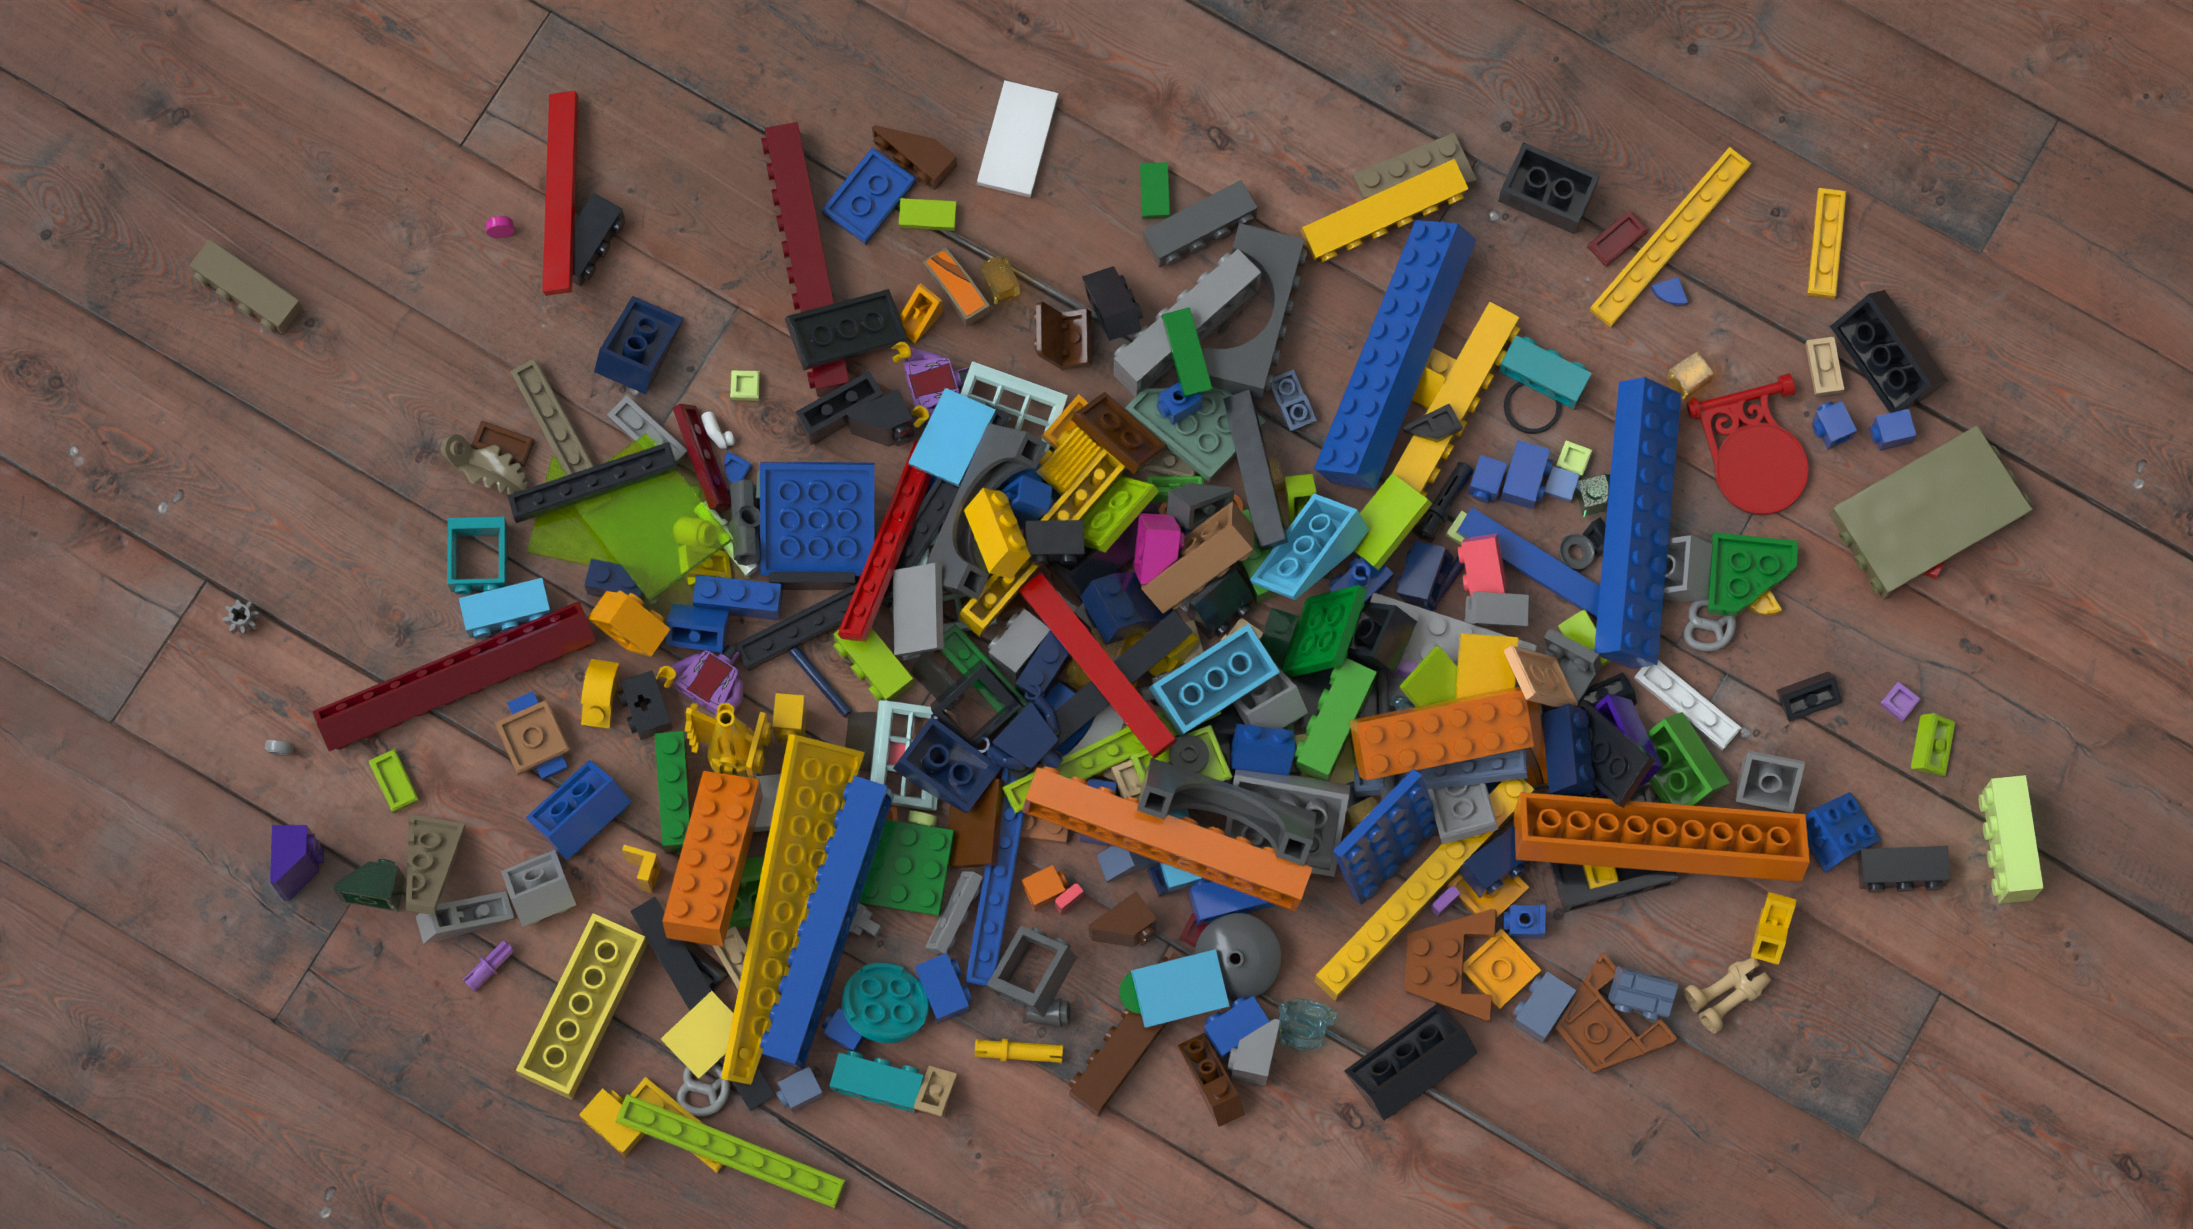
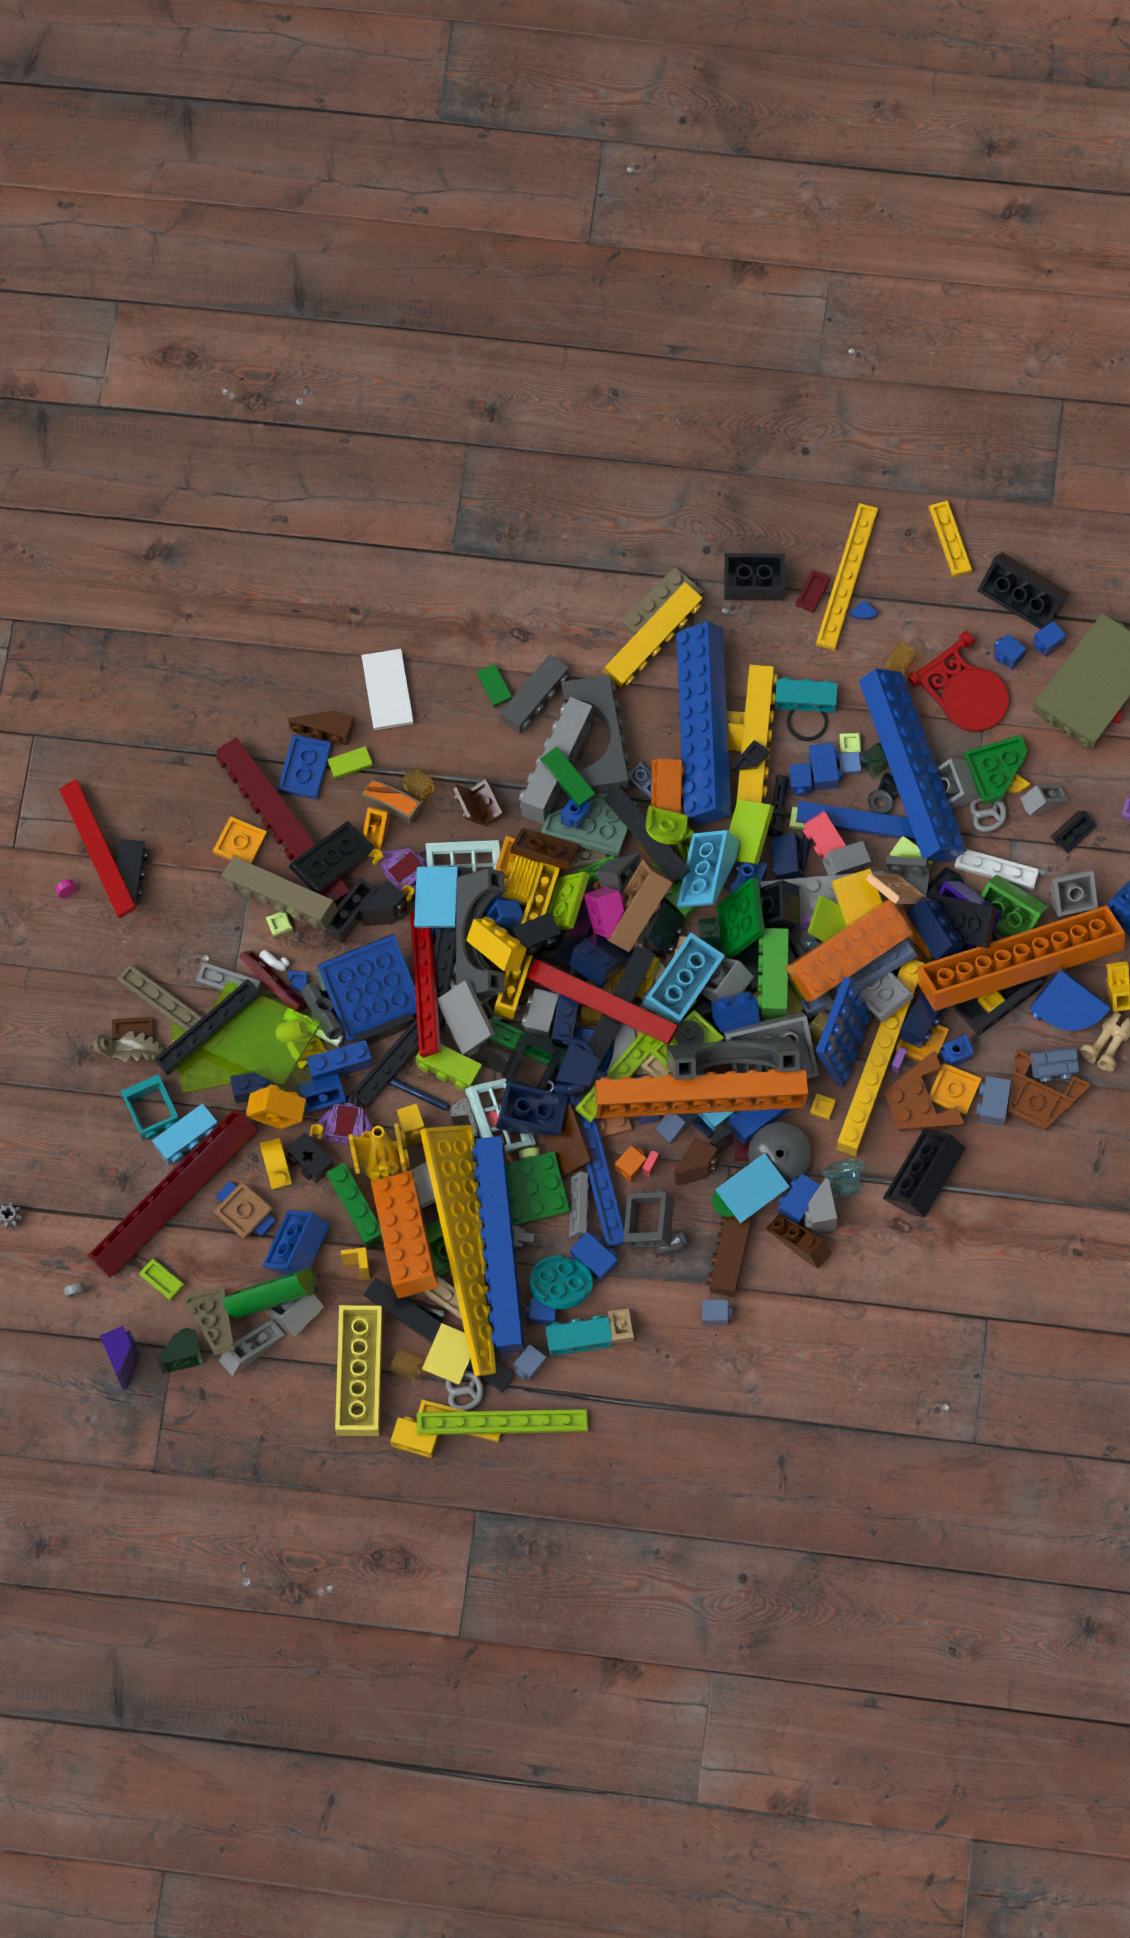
camera: 20 degrees left, 5 degrees down
(487, 966) = (282, 1373): medium lavender axle -> none
(514, 859) = (270, 1293): none -> green brick
(638, 345) = (195, 926): dark blue slope -> none
(645, 1025) = (407, 1366): none -> clear yellow brick
(743, 259) = (240, 840): none -> light orange tile
(759, 348) = (279, 892): none -> dark tan brick
(1018, 1051) = (662, 1276): yellow pin -> none
(1063, 1128) = (715, 1312): none -> sand blue brick
(1113, 303) = (502, 767): black brick -> none
(1170, 907) = (722, 1138): none -> black slope
(1284, 469) = (666, 825): none -> lime tile
(1308, 422) = (666, 784): none -> orange brick
(1322, 918) = (822, 1107): none -> yellow tile
(1696, 922) = (1068, 1003): none -> blue brick
(1790, 638) = (1044, 799): none -> light grey slope
(1824, 366) = (985, 617): tan plate -> none

